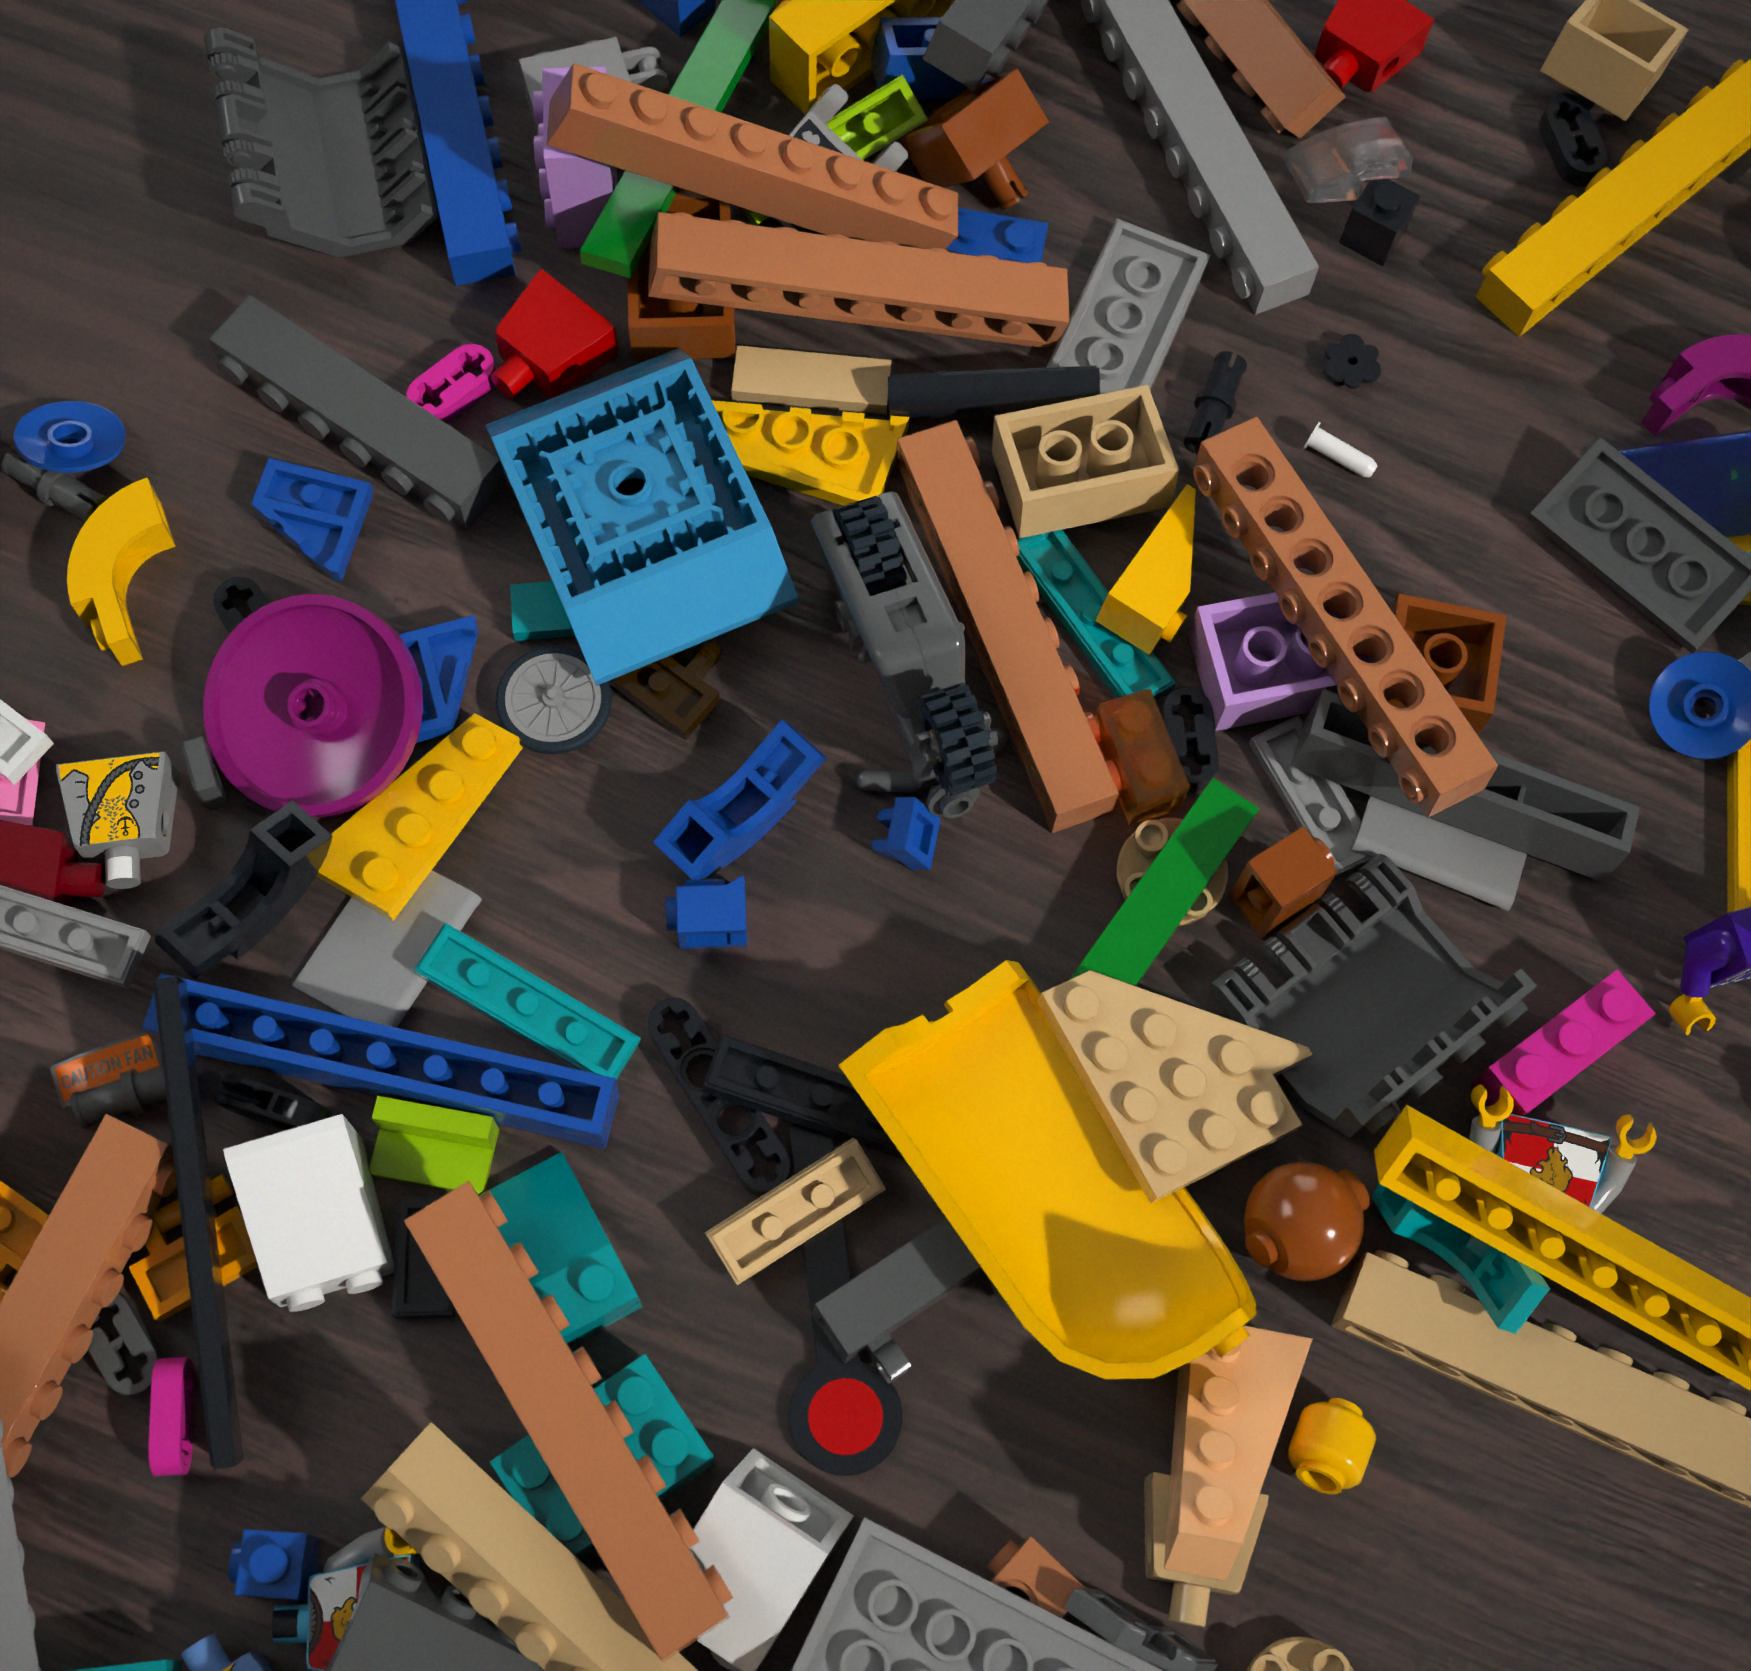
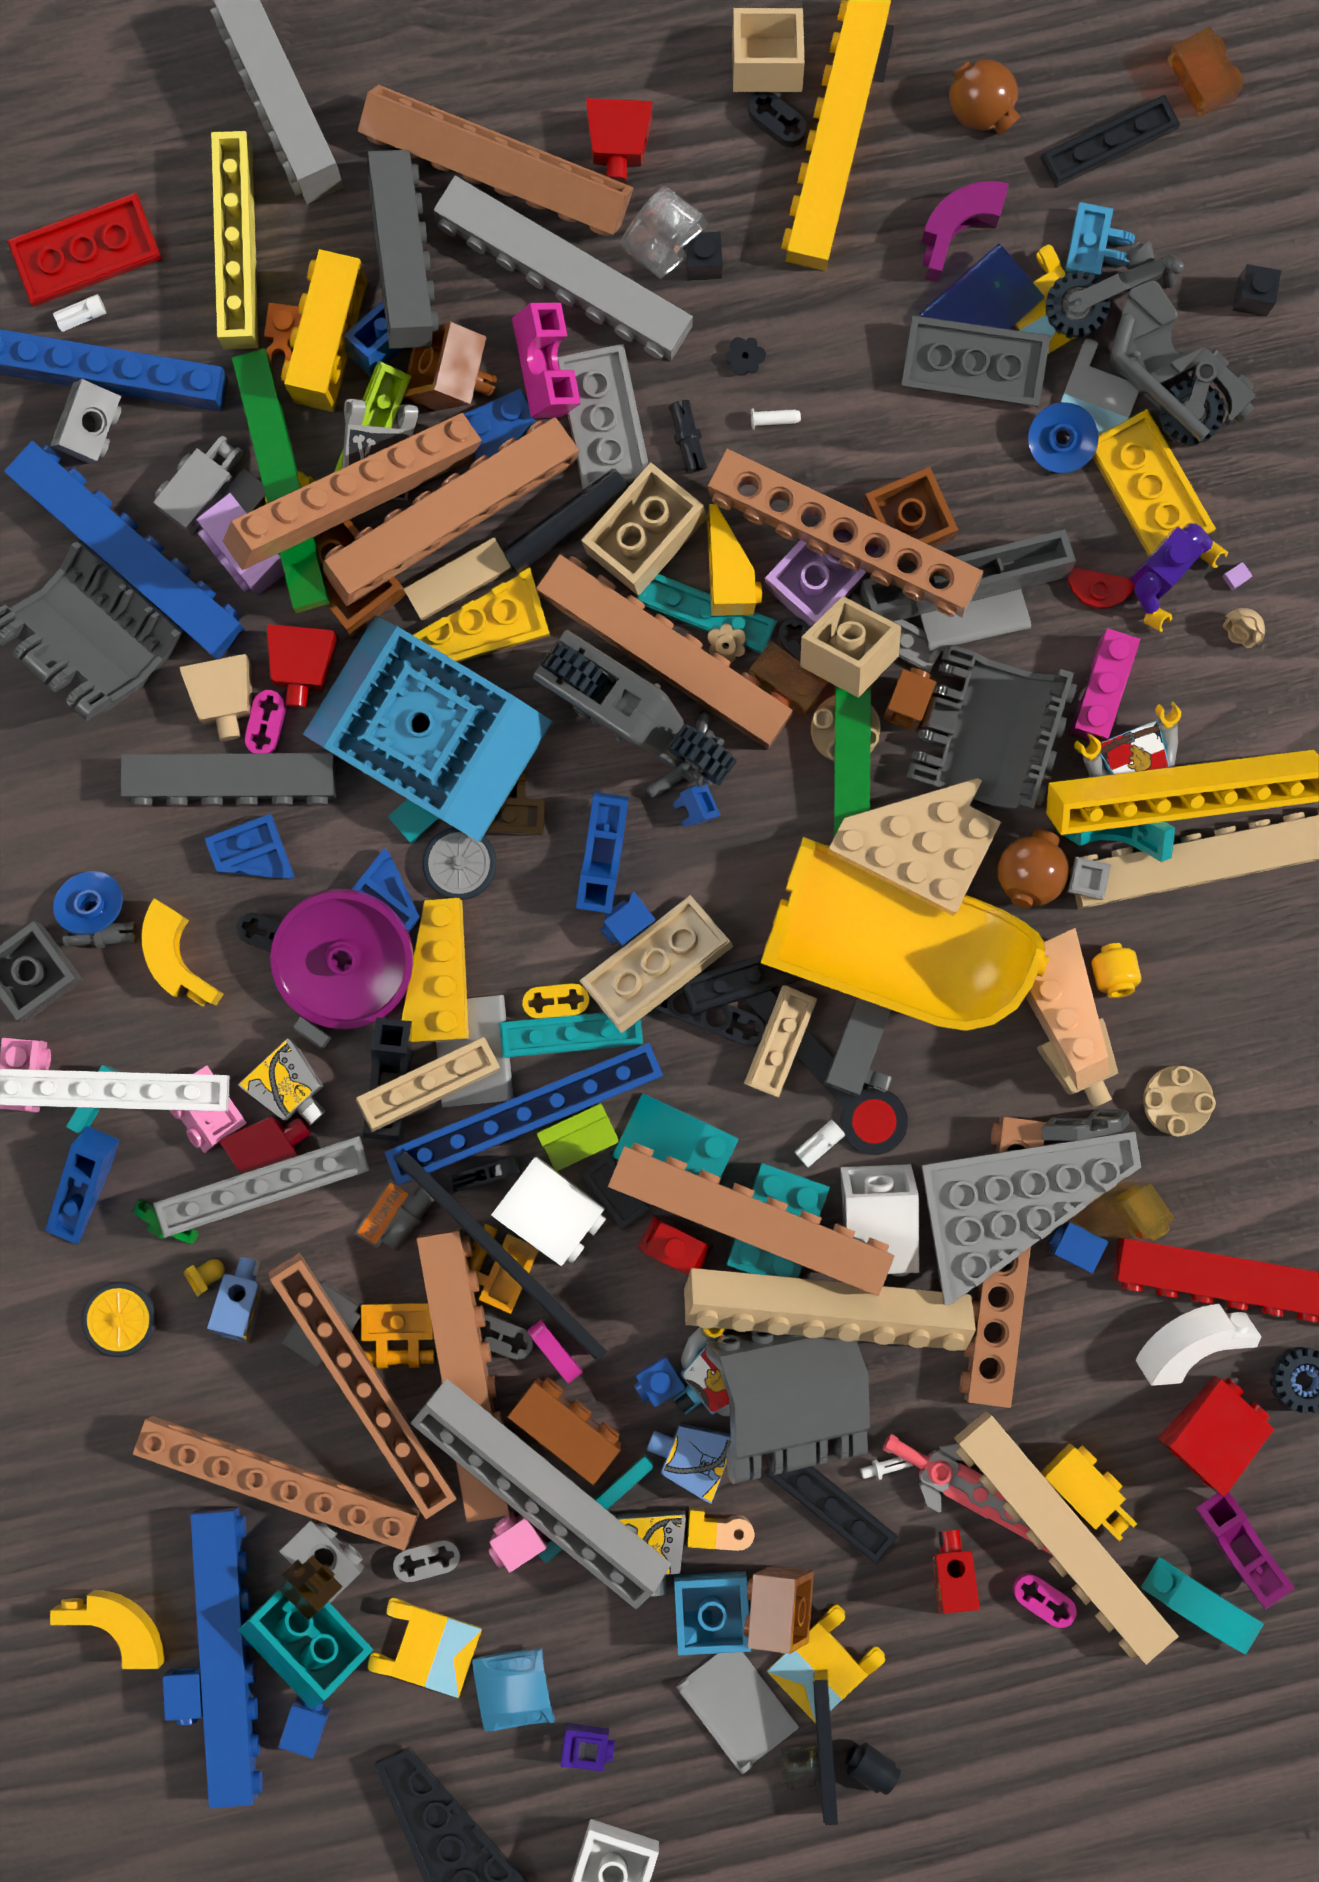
camera: 30 degrees left, 15 degrees up
(91, 1535) = (566, 1429): none -> dark orange brick
(288, 930) = (427, 1084): none -> tan plate
(427, 312) = (221, 692): none -> tan torso
(443, 1389) = (674, 1246): none -> red torso
(547, 942) = (555, 992): none -> yellow beam
(704, 992) = (656, 963): none -> tan tile
(748, 1391) = (819, 1143): none -> white piece
(1087, 229) = (538, 334): none -> dark pink arch
(1104, 665) = (726, 634): none -> tan plant
(1251, 756) = (850, 646): none -> tan brick
(1377, 1283) = (1089, 878): none -> light grey tile
(1634, 925) = (1099, 589): none -> red plate

